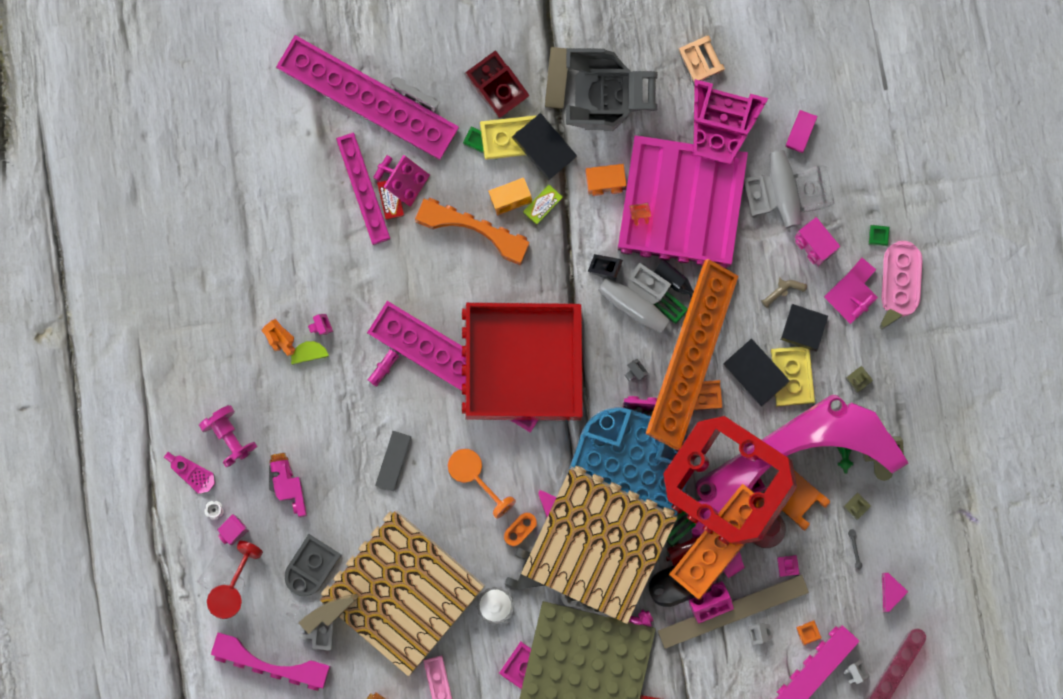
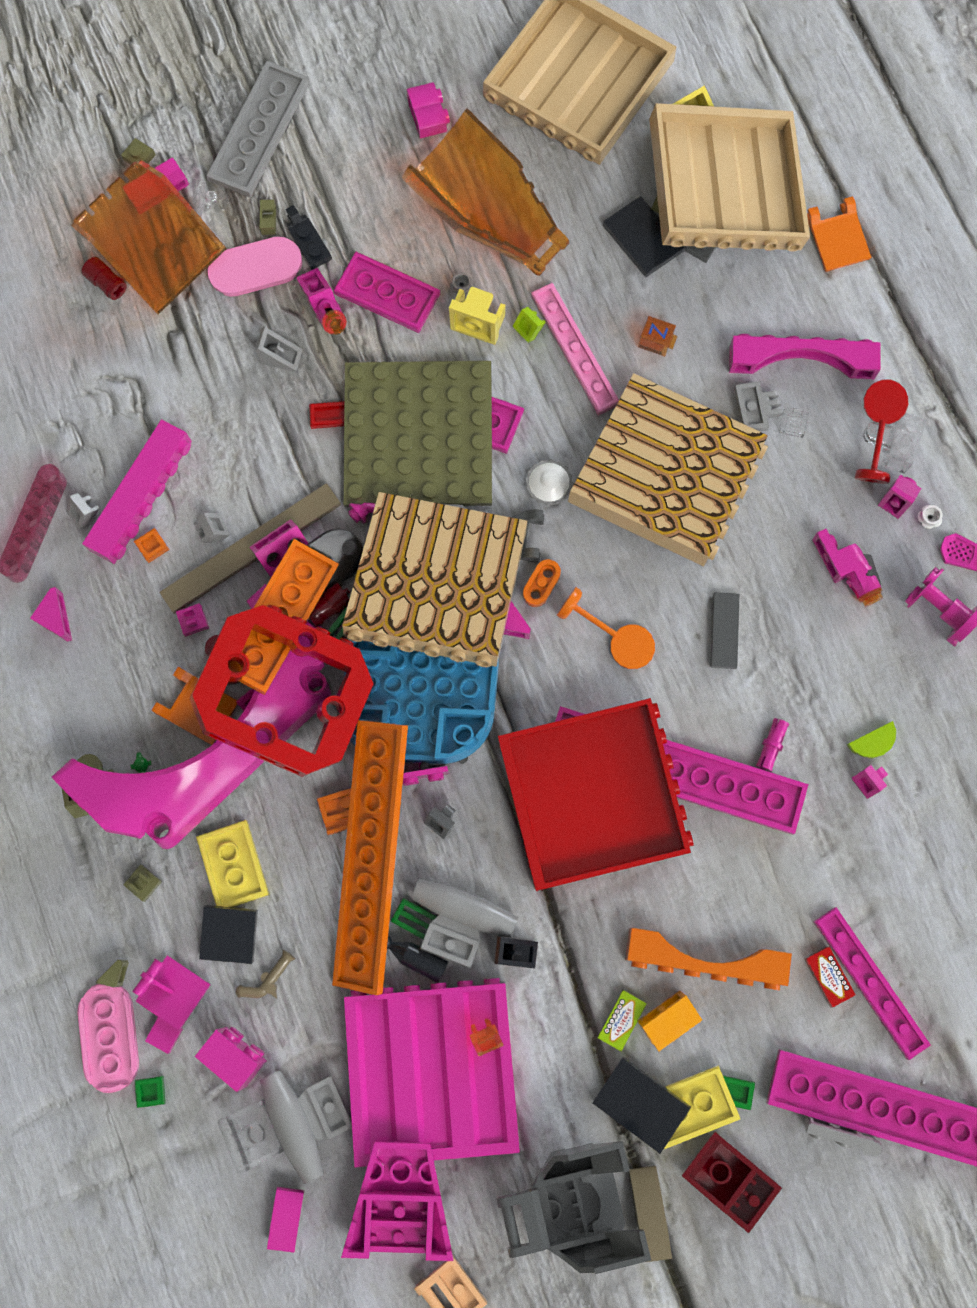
camera: 170 degrees right, 5 degrees down
(279, 337) = (921, 751): orange rock -> none
(312, 565) = (789, 481): dark grey tile -> none
(327, 613) = (755, 418): dark tan slope -> none
(405, 179) = (819, 1008): dark pink plate -> none
(605, 179) = (544, 1078): orange brick -> none
(756, 372) = (280, 857): black tile -> none
(852, 533) = (117, 680): dark grey hinge -> none
(857, 506) = (117, 715): olive tile -> none

